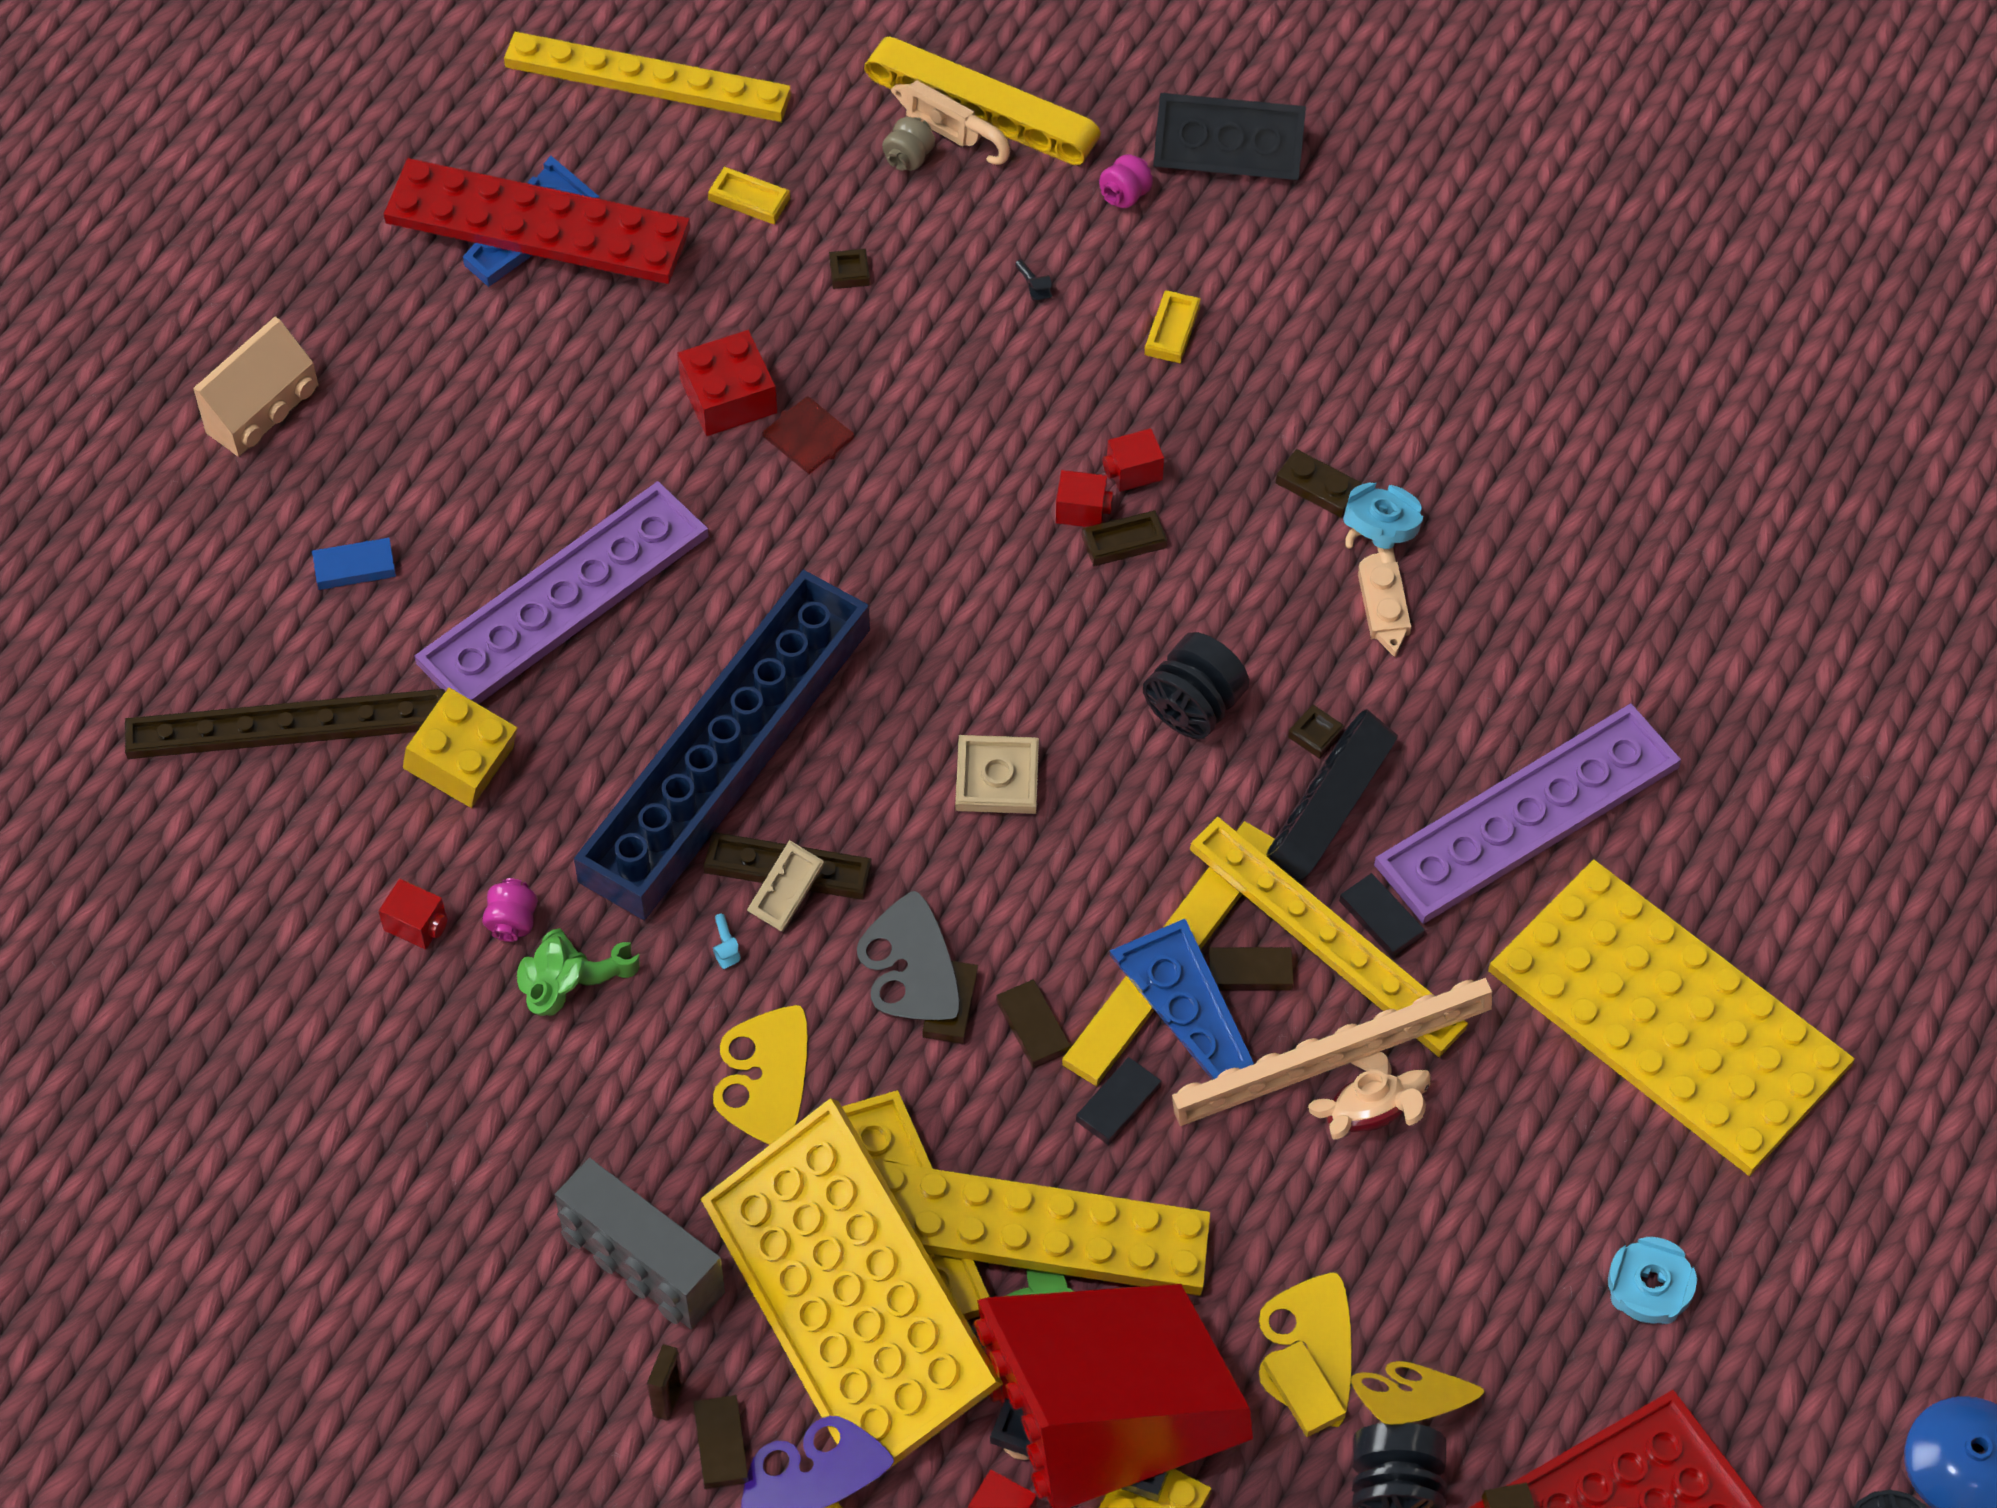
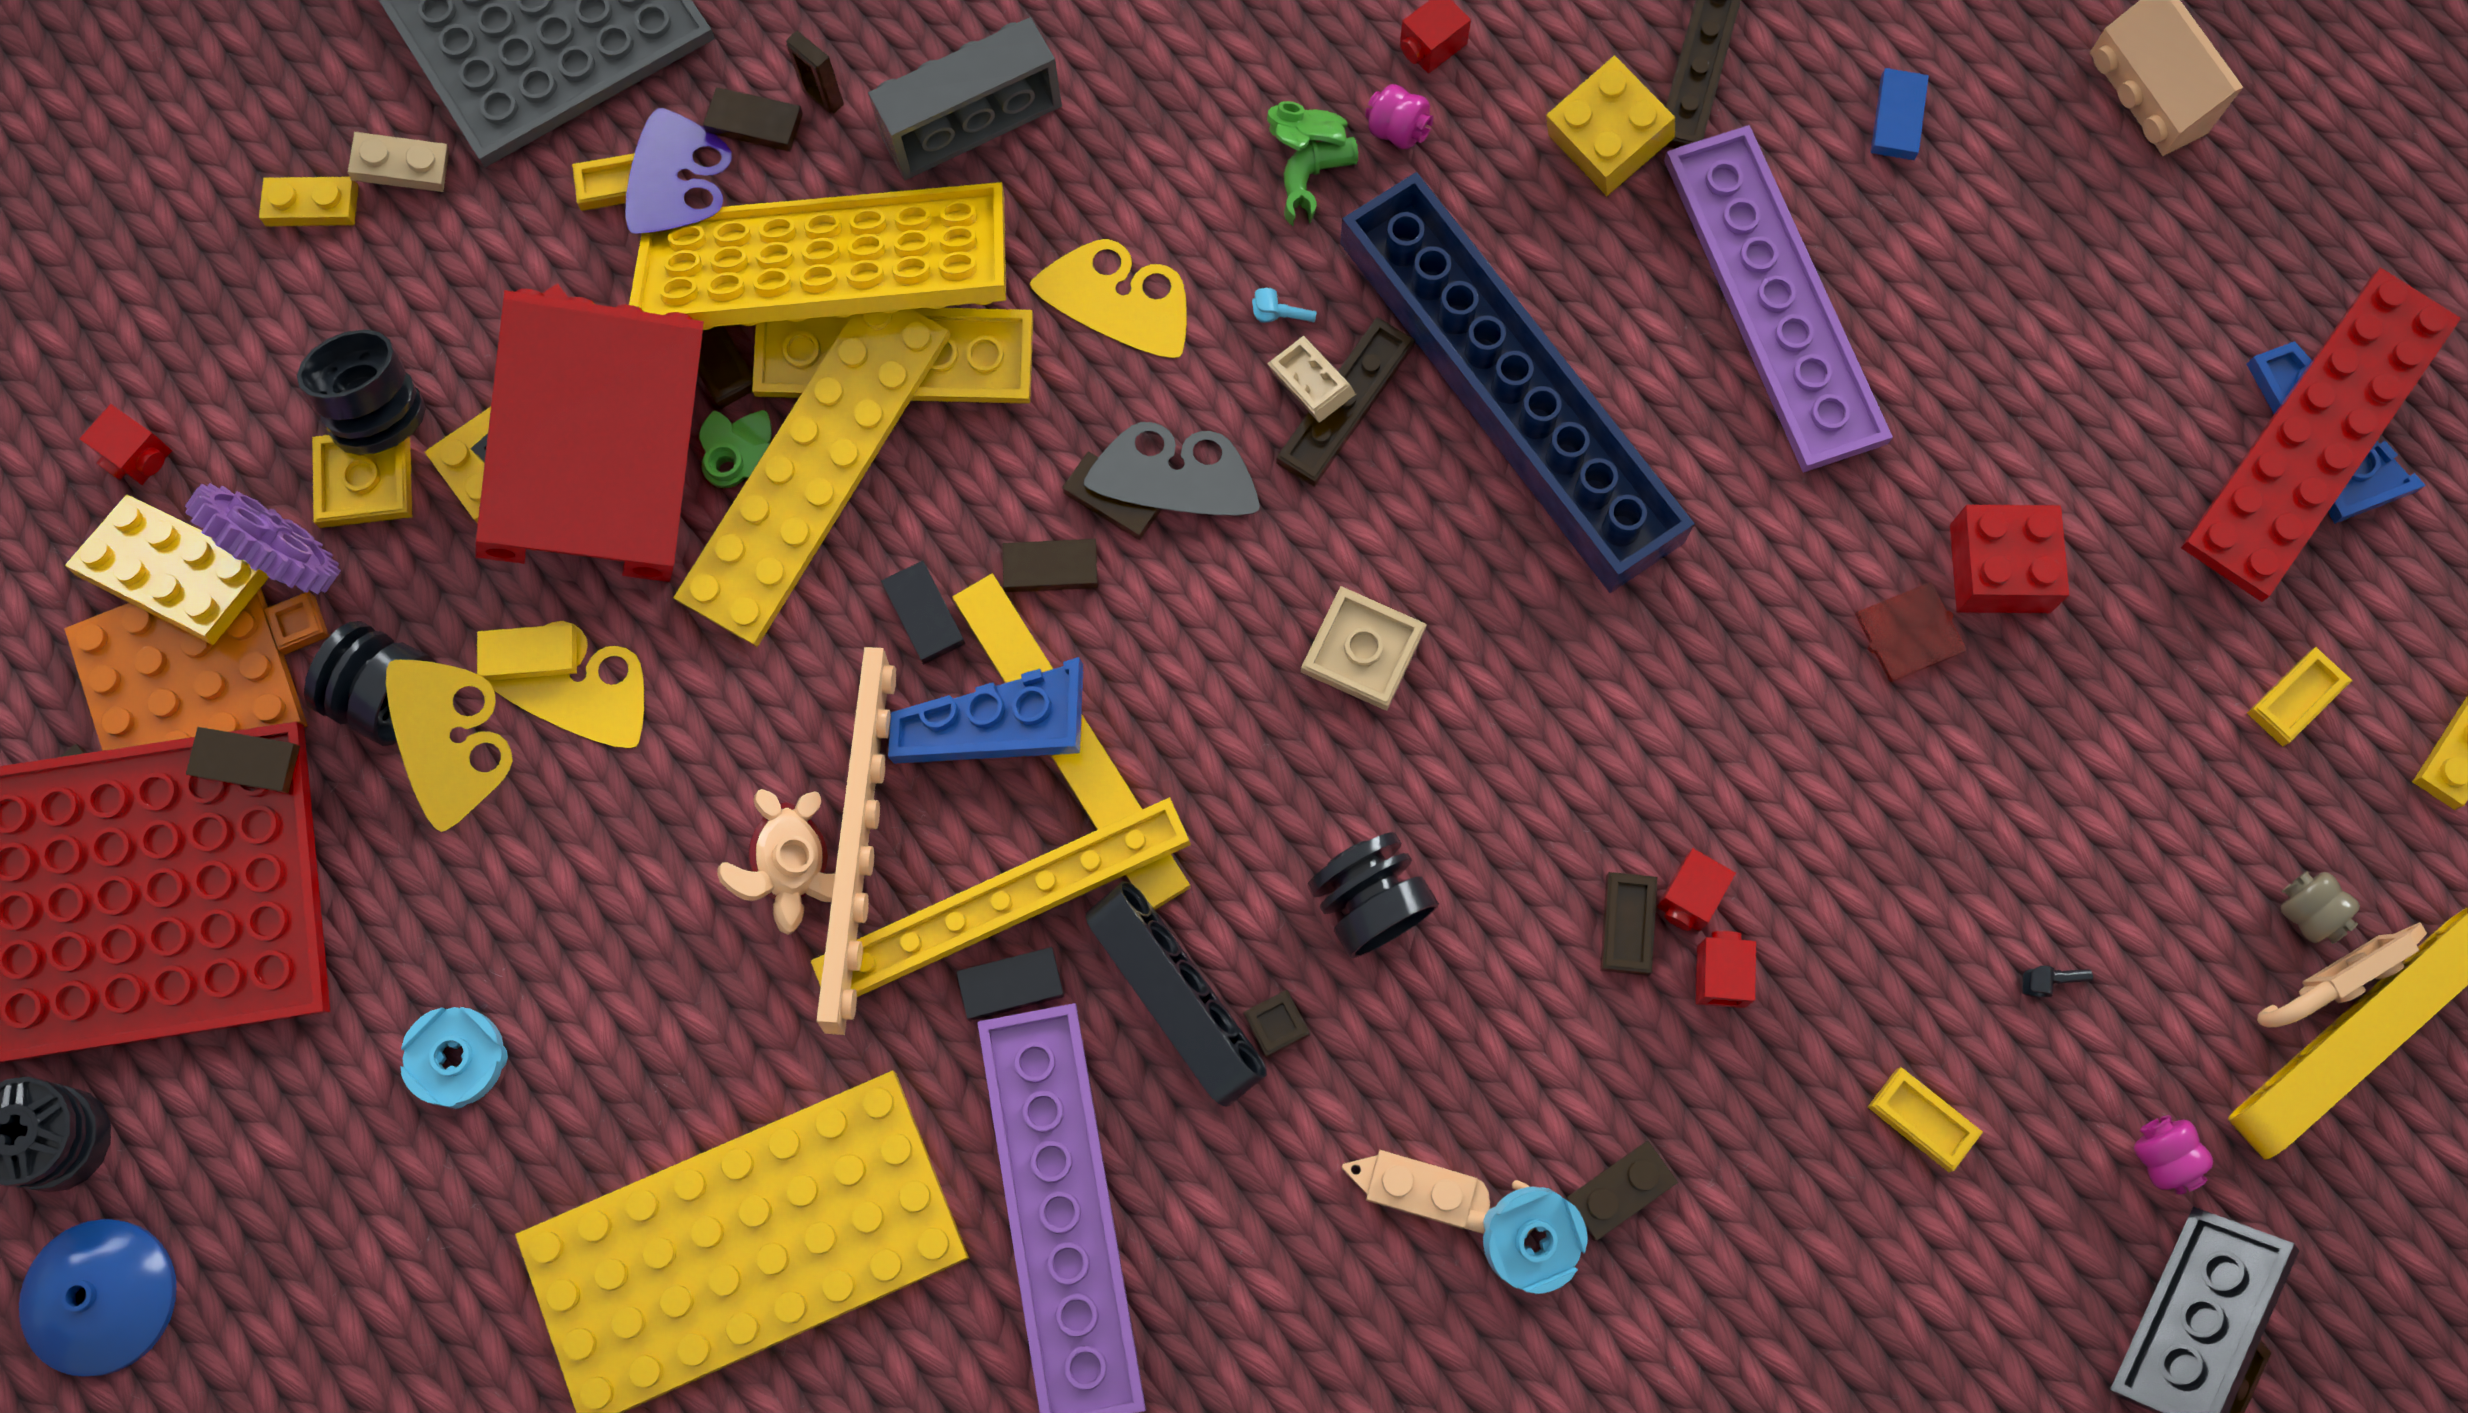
camera: 115 degrees right, 15 degrees up
(849, 268) = (2145, 769): dark brown tile -> none
(1251, 968) = (1010, 813): dark brown tile -> none

